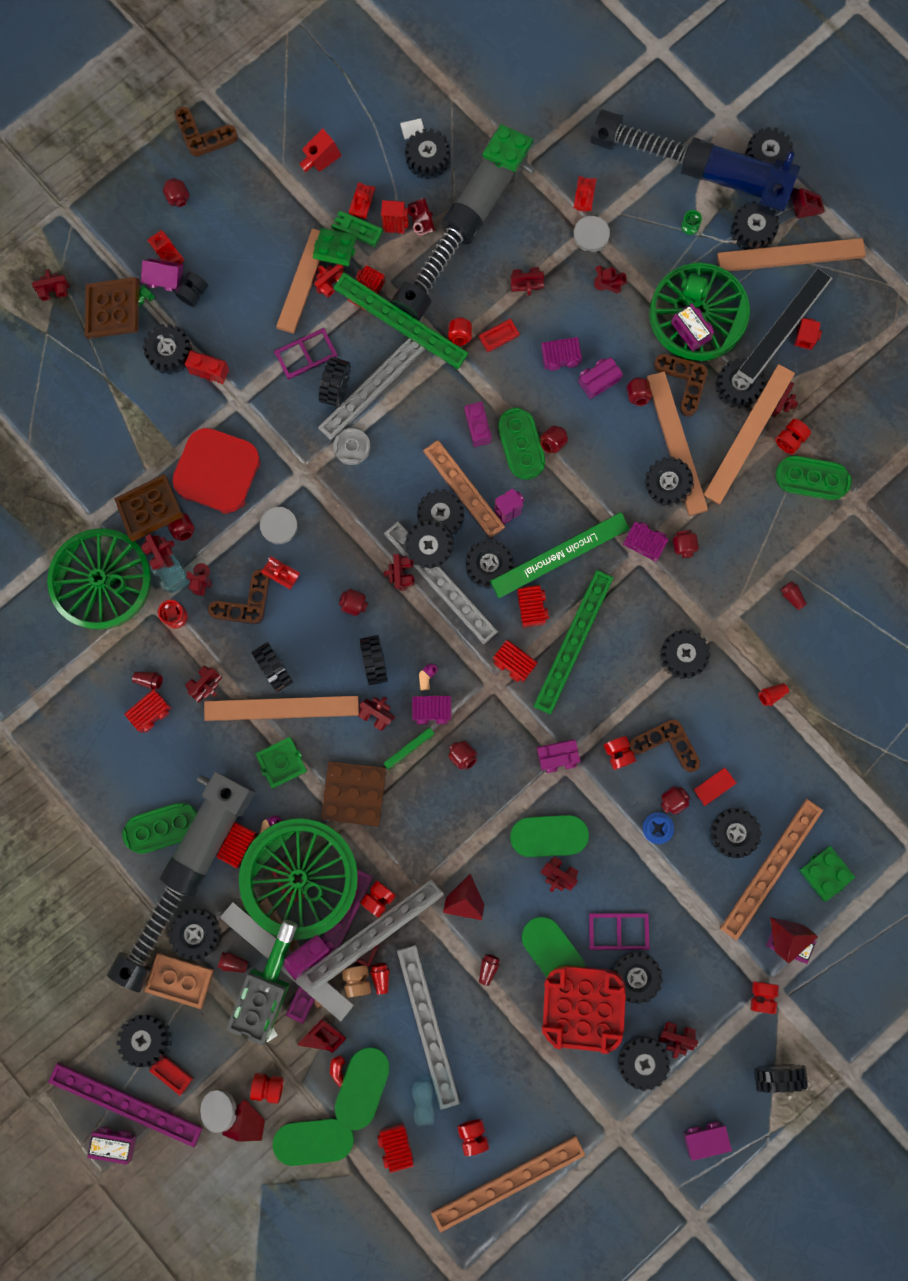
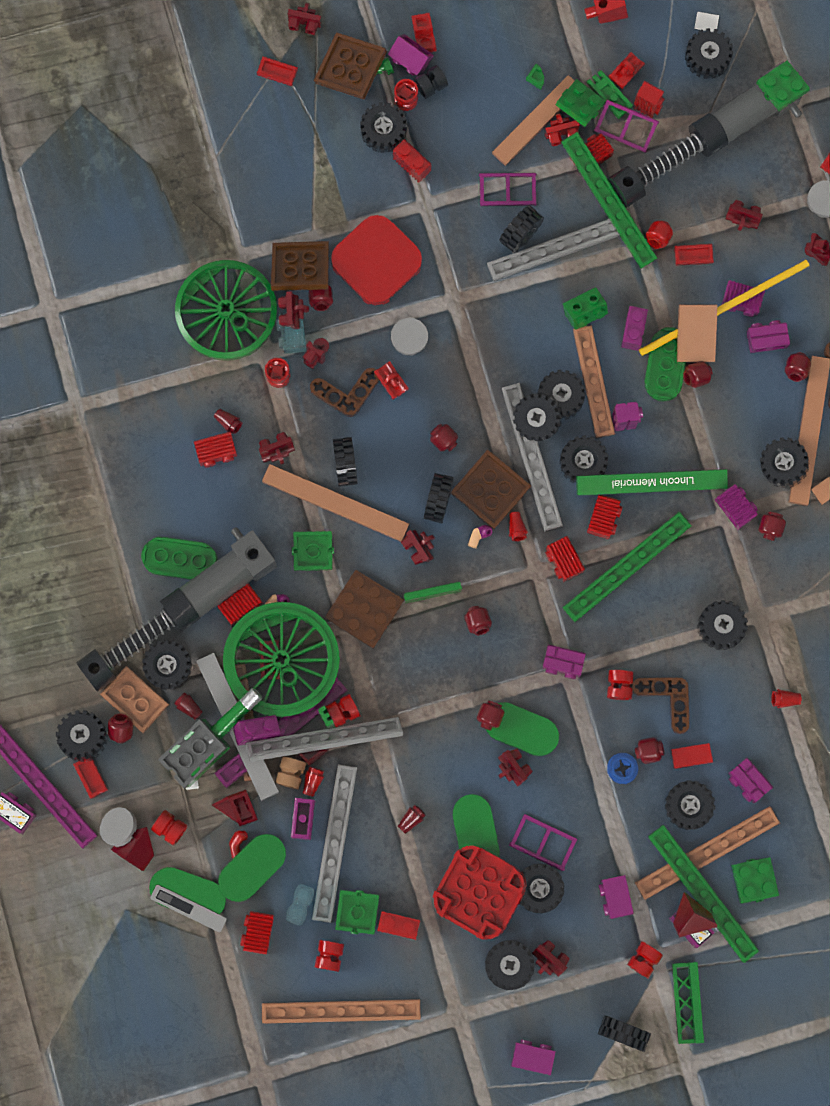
camera: 20 degrees right, 0 degrees up
(48, 343) = (277, 71): none -> red tile
(174, 310) = (406, 94): none -> red wheel
(177, 1015) = (120, 728): none -> dark red head
(284, 243) = (536, 77): none -> green tile
(320, 1156) = (188, 908): none -> light grey sticker
(352, 446) = (509, 295): light grey tile -> none
(365, 914) = (326, 717): none -> green tile
(384, 235) = (632, 112): none -> magenta window
(388, 1019) = (303, 819): none -> magenta brick
(397, 572) = (496, 430): dark red hips -> none
(417, 629) = (490, 489): none -> reddish brown plate
(421, 217) = (673, 111): dark red hips -> none
(425, 427) = (585, 308): none -> green brick
(431, 709) = (470, 567): magenta brick -> none
(458, 653) = (517, 528): none -> red cone
(465, 900) = (419, 749): dark red slope -> none
(479, 1082) = (357, 912): none -> green plate
(515, 838) = (490, 715): none -> dark red head
(524, 1076) = (398, 925): none -> red brick
(536, 402) = (697, 332): none -> nougat tile
(550, 367) = (732, 303): none -> yellow piece
(710, 950) = (616, 897): none -> magenta brick
(778, 784) = (749, 780): none -> magenta brick
(786, 908) = (703, 893): none -> green tile
(829, 1014) = (696, 1013): none -> green fence

